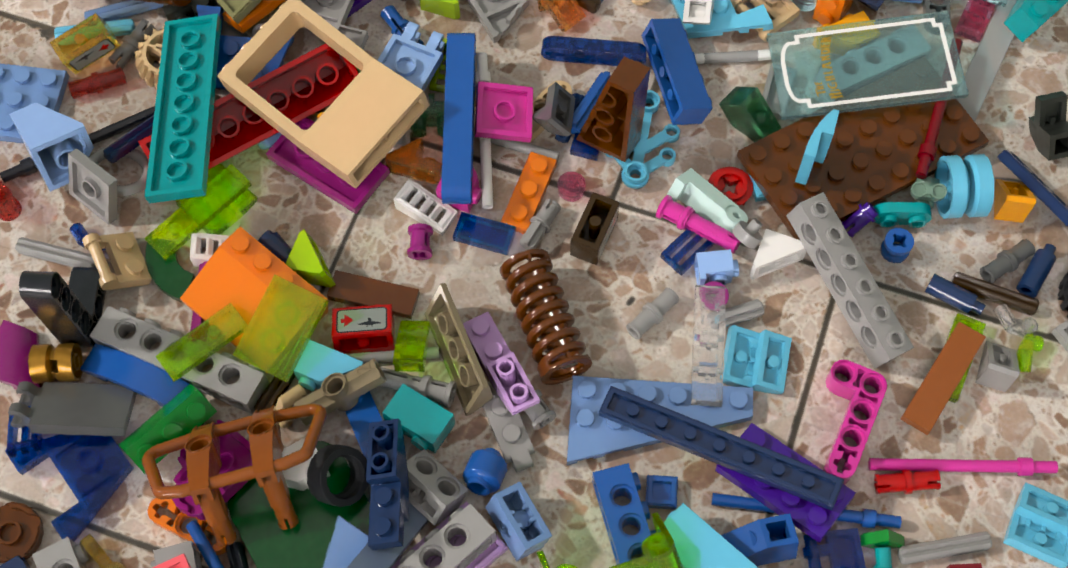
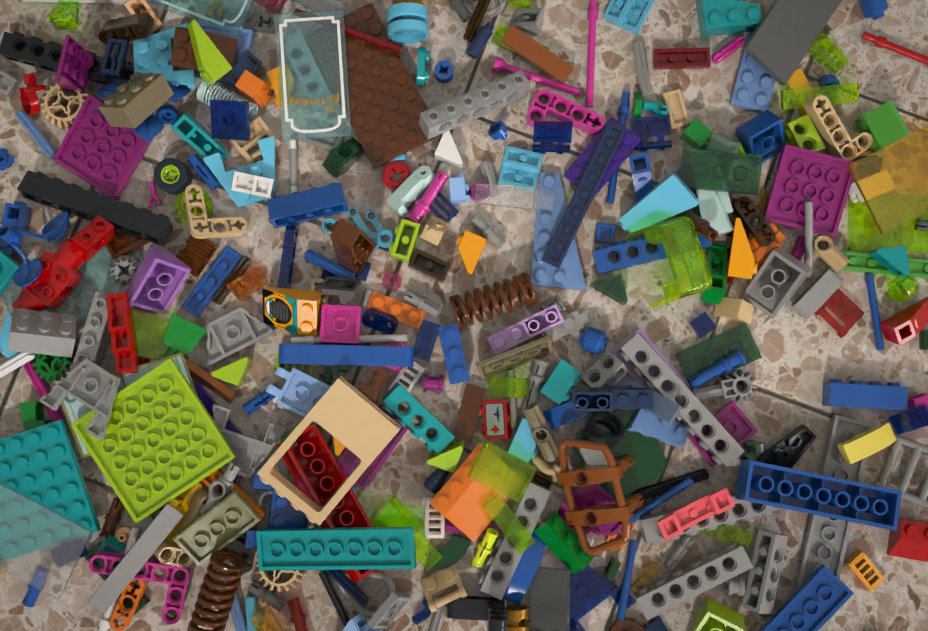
camera: 90 degrees left, 20 degrees up
(99, 526) = (626, 580): none -> blue piece
(121, 505) = (612, 568): none -> dark green tile
(171, 316) = (481, 555): none -> neon yellow pin
(366, 232) = (399, 394): none -> teal brick
(462, 263) = (453, 353): none -> blue brick
(511, 169) = (380, 321): none -> clear blue beam
(518, 521) = (627, 319): medium blue brick -> none
(526, 55) = (292, 310): none -> light orange slope
(571, 500) = (612, 288): none -> clear green slope
(620, 288) = (470, 250): none -> light orange slope
(637, 195) = (405, 241): none -> lime brick
(649, 235) = (435, 230): none -> tan brick
(748, 233) = (438, 165): light grey tile -> none
(812, 324) = (498, 131): none -> blue tile
(817, 146) = (378, 111): medium azure slope -> none
(818, 400) = (552, 132): none -> clear blue plate
(864, 215) = (425, 92): dark purple pin -> none
(907, 481) = (602, 85): red pin -> none
(918, 325) = (501, 66): none -> dark pink piece
(928, 191) = (410, 46): sand green plate -> none

